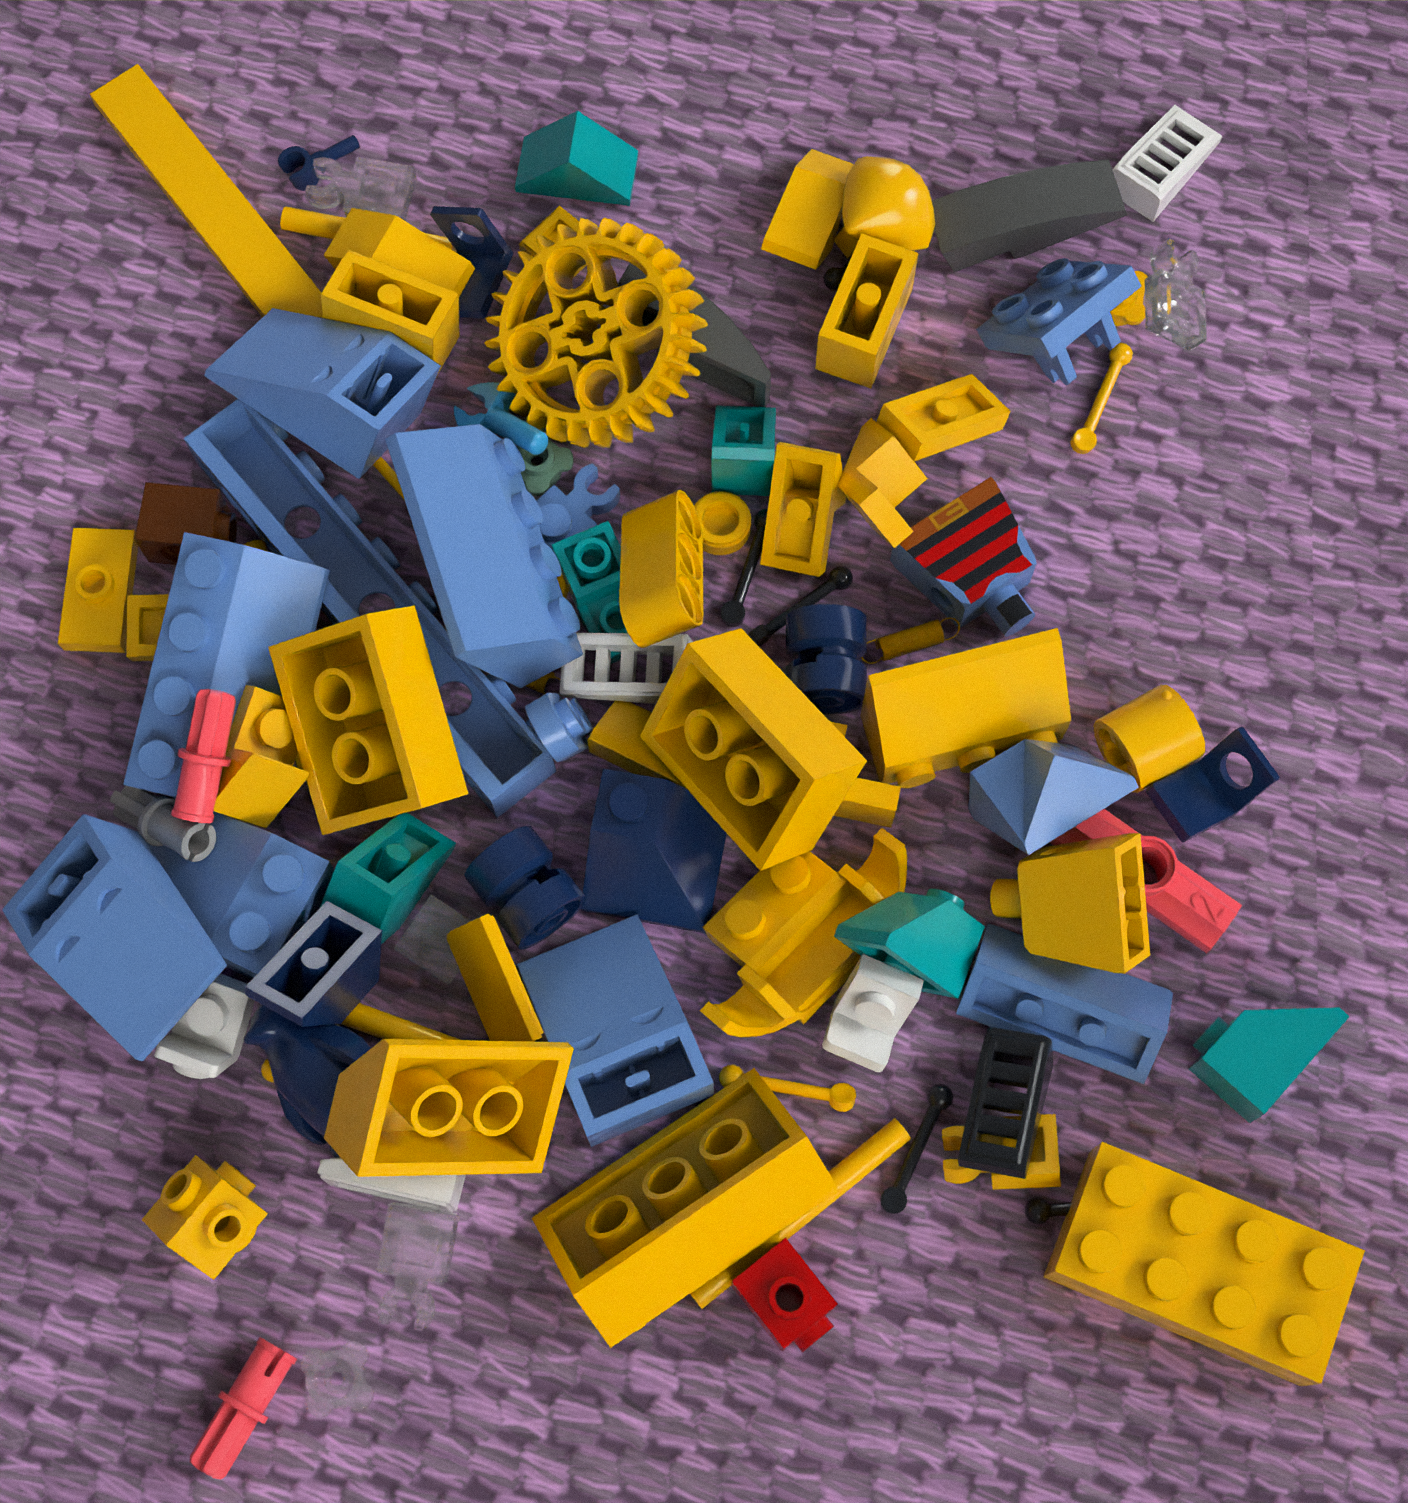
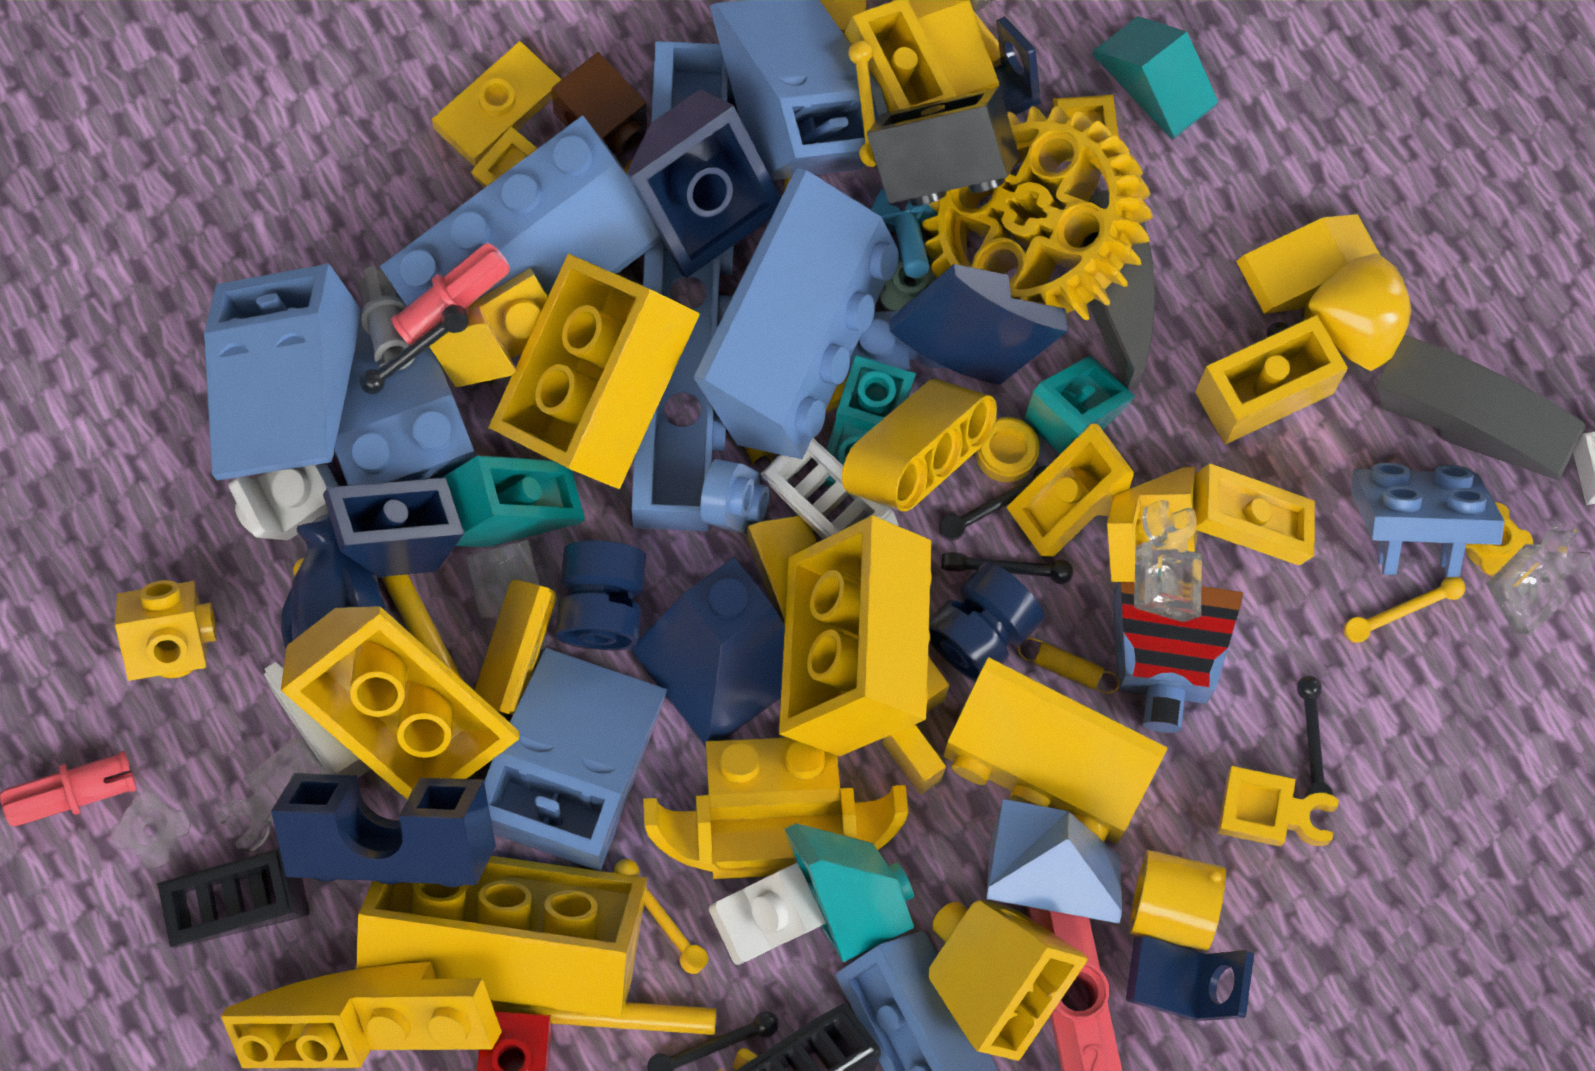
camera: 35 degrees right, 0 degrees up
(224, 772) = (453, 321): none -> black hinge
(320, 506) = (701, 180): none -> dark blue slope
(428, 381) = (860, 54): none -> yellow hinge
(483, 332) = (944, 147): none -> black brick
(485, 1323) = (288, 891): none -> black slope
(494, 1251) = (334, 835): none -> dark blue arch
(624, 443) = (976, 326): none -> dark blue slope
(630, 1377) = (351, 1012): none -> yellow slope
(927, 503) = (1165, 571): none -> clear plate
(1144, 620) = (1263, 808): none -> yellow plate
(1166, 578) = (1310, 689): none -> black hinge

